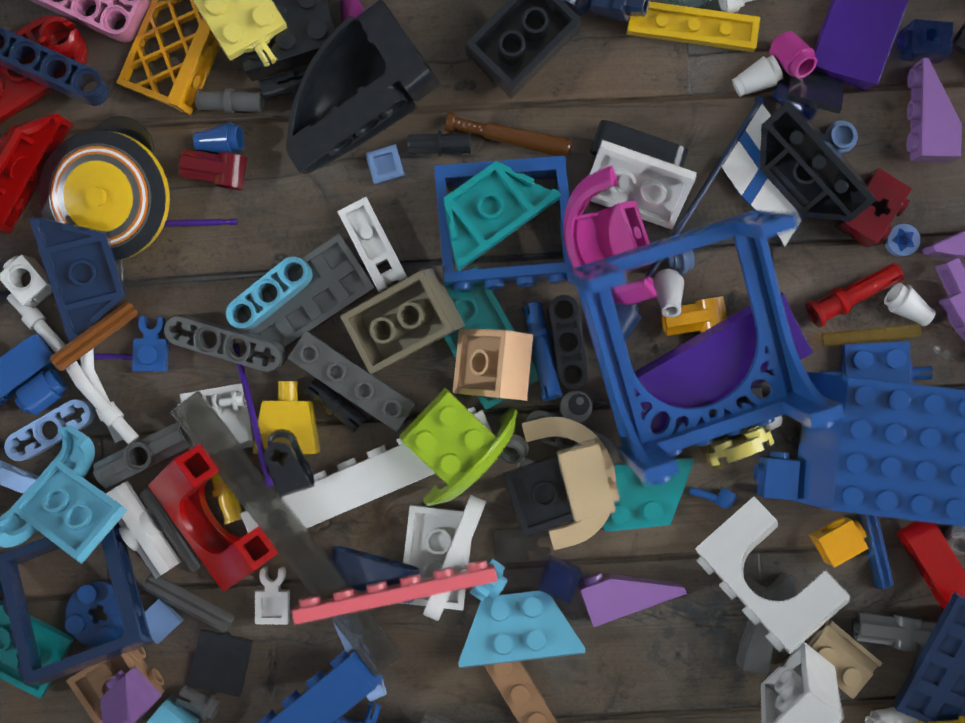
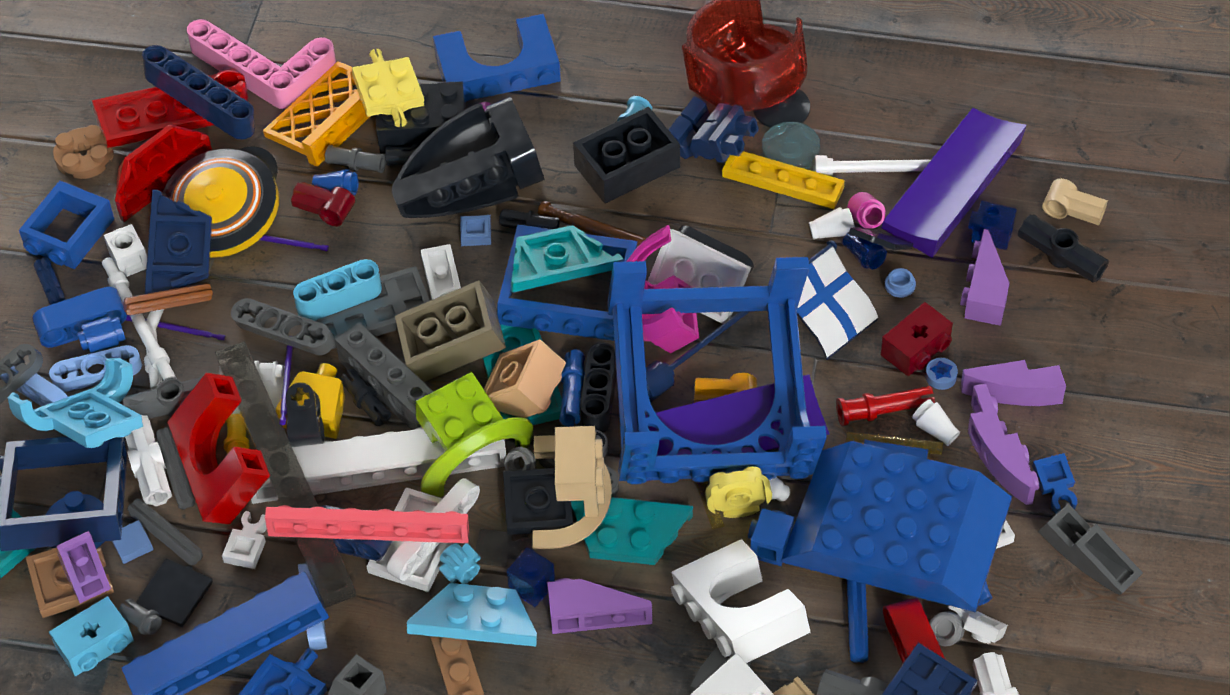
camera: 15 degrees right, 35 degrees down
(151, 352) = (213, 326): blue plate -> none
(669, 291) = (710, 359): white cone -> none
(682, 262) = (724, 345): medium blue plate -> none
(724, 498) = (715, 545): blue hand -> none
(810, 168) = (857, 289): black wedge -> none
(839, 541) = (822, 602): light orange brick -> none

